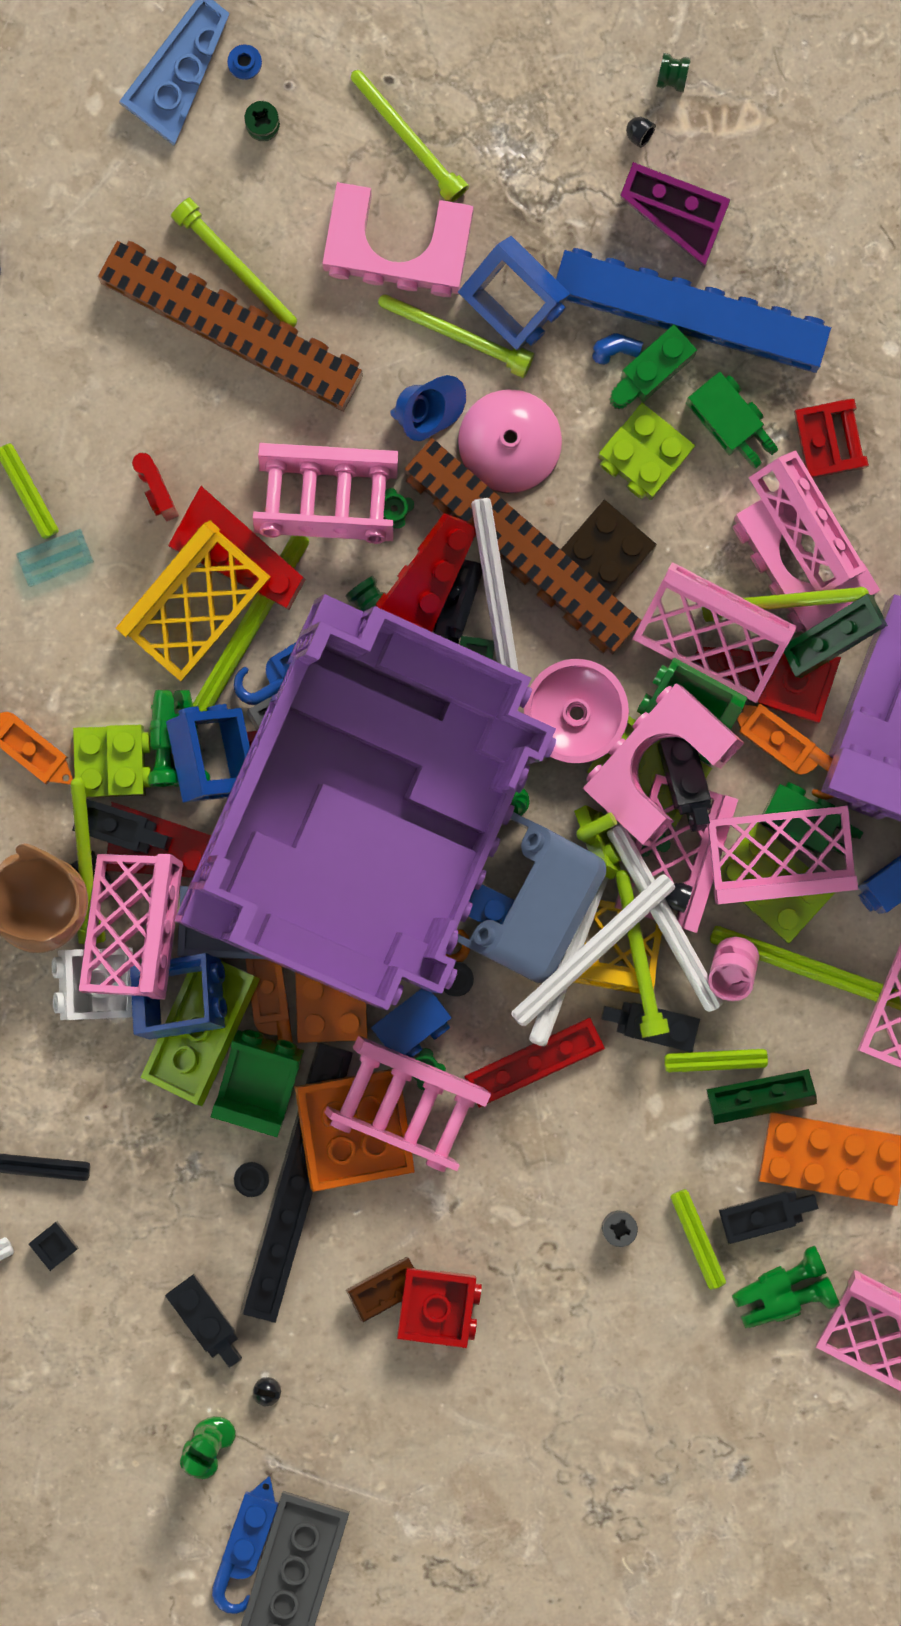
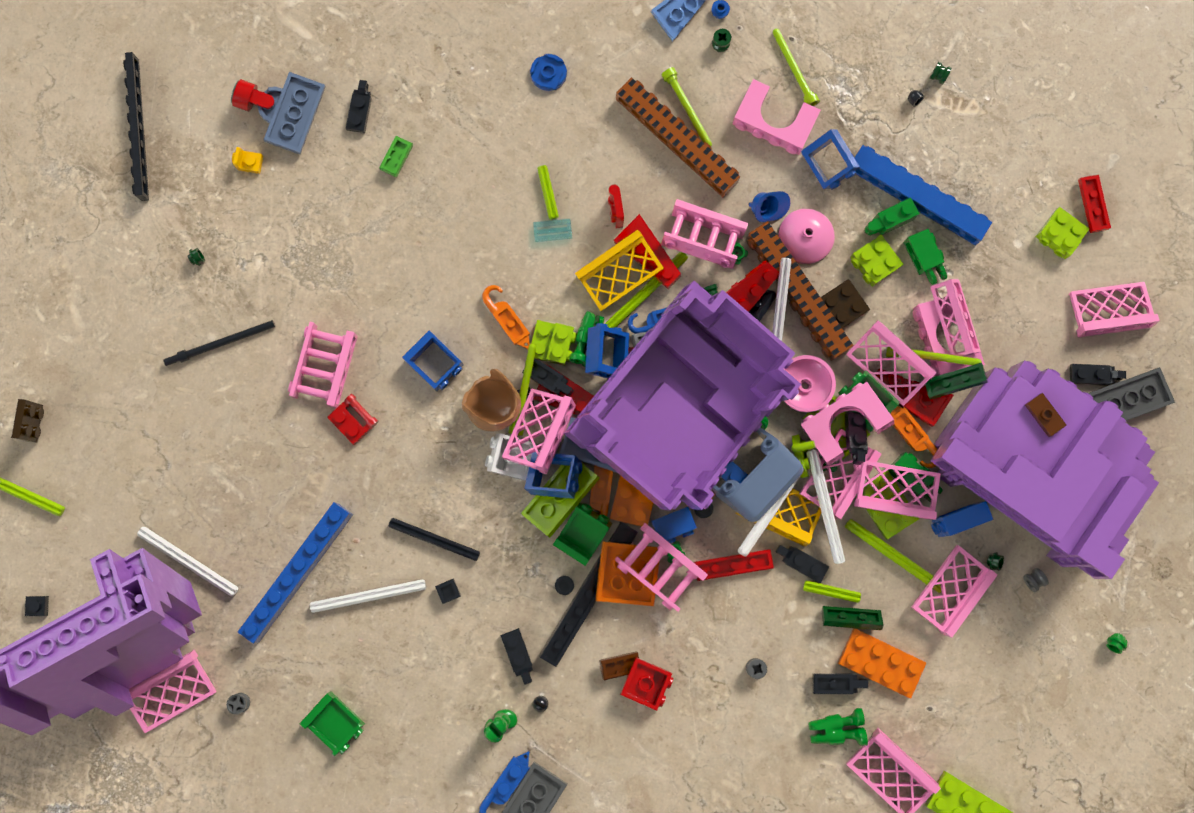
camera: 10 degrees right, 5 degrees down
(517, 360) = (821, 195): lime piece -> none
(593, 950) = (784, 512): white axle -> none
(614, 344) = (874, 201): blue arm -> none
(653, 1021) = (806, 560): lime piece -> none
(677, 209) = (925, 140): magenta wedge -> none
(679, 897) = (836, 496): black hinge -> none
(698, 1239) = (797, 686): lime axle -> none
(733, 969) = (855, 544): bright pink wheel -> none
(820, 441) = (970, 279): red plate -> none

